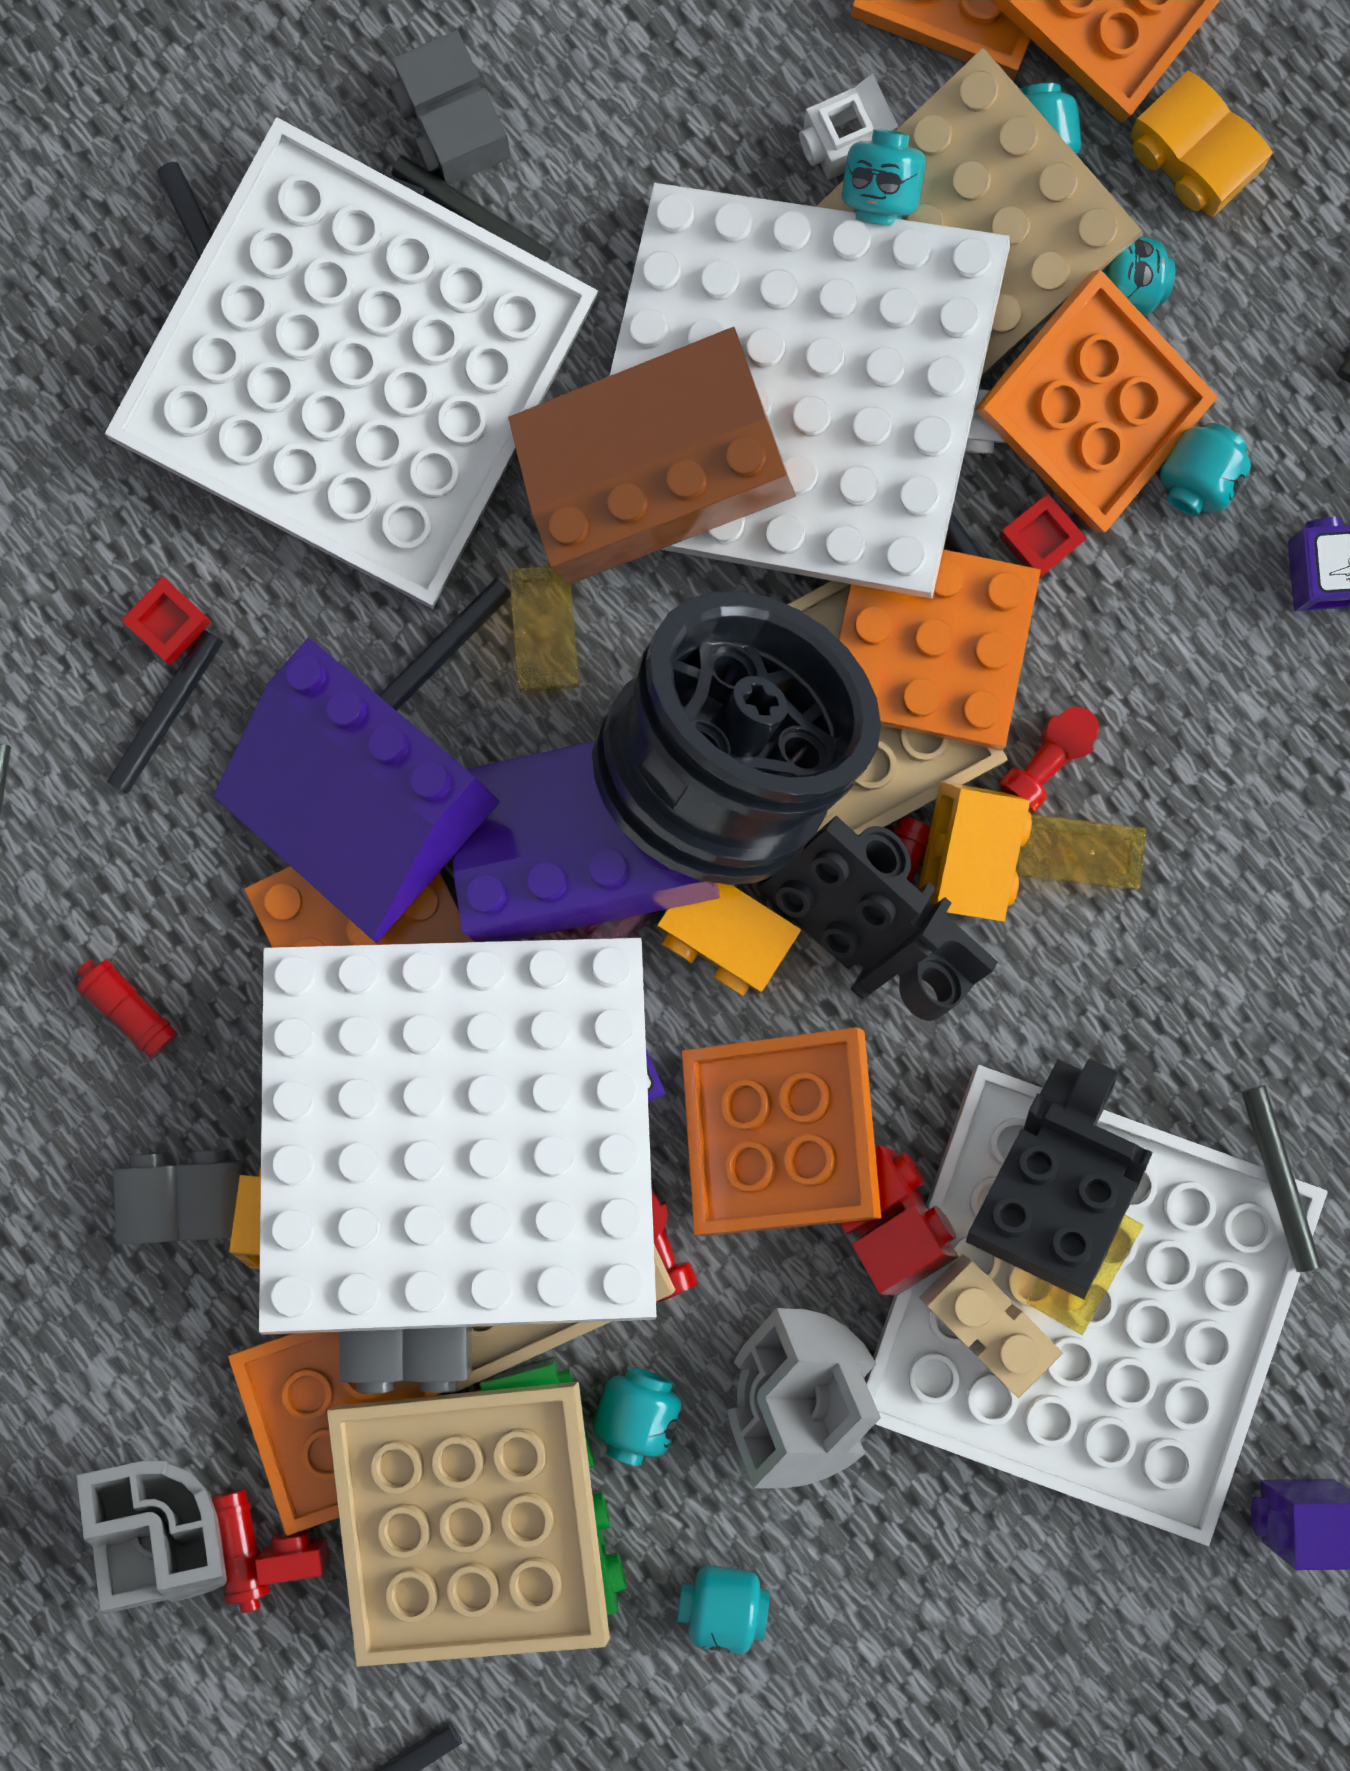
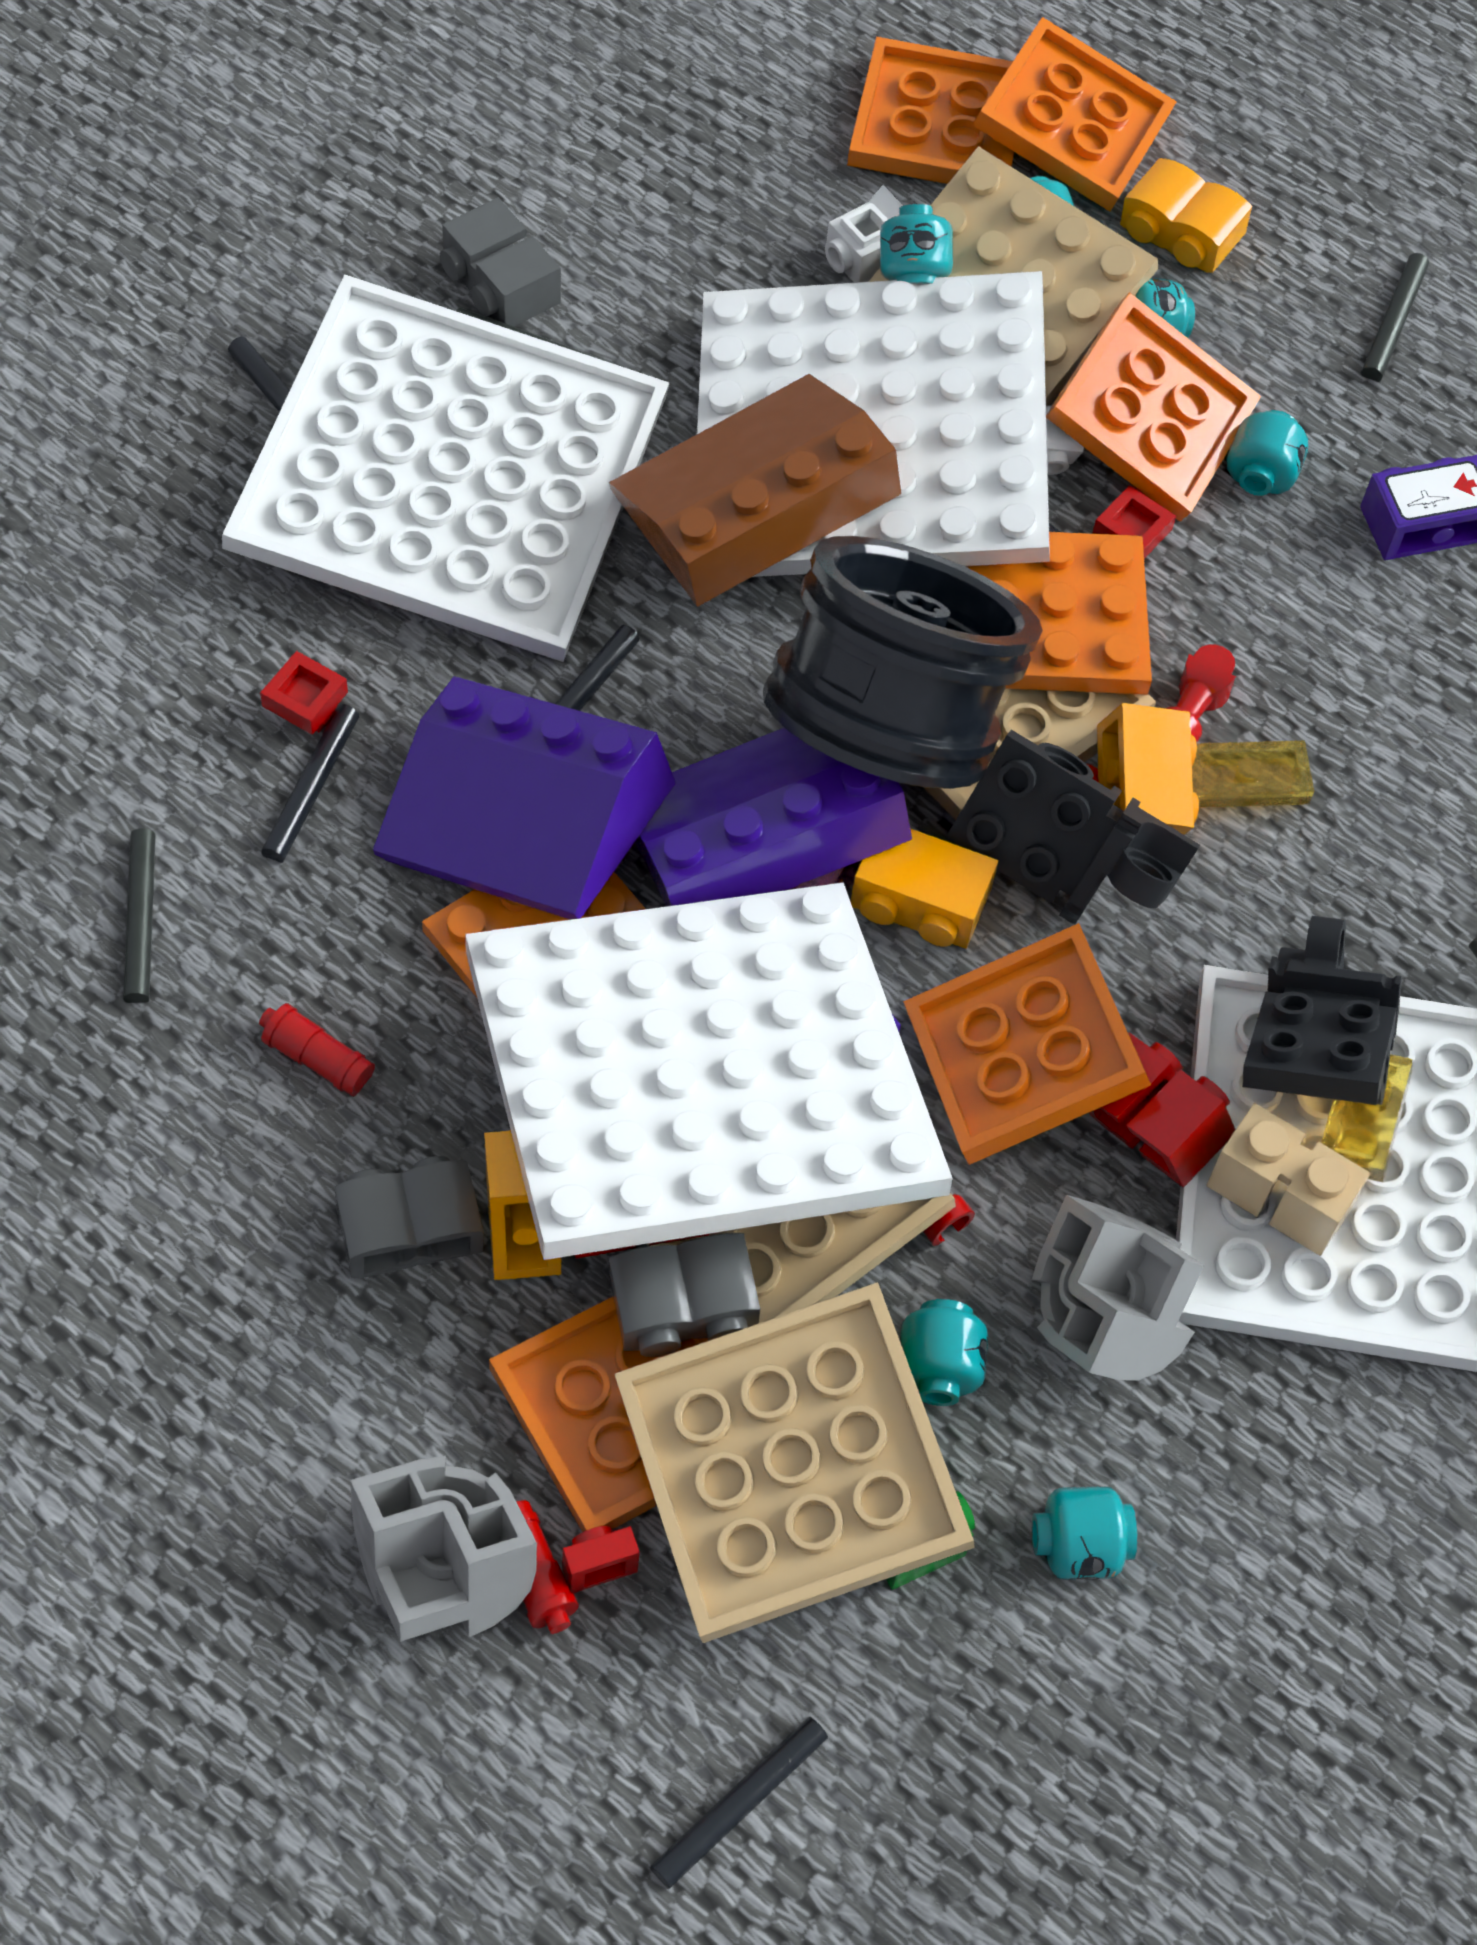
camera: 15 degrees left, 25 degrees down
(543, 630) = (679, 658): clear yellow plate -> none

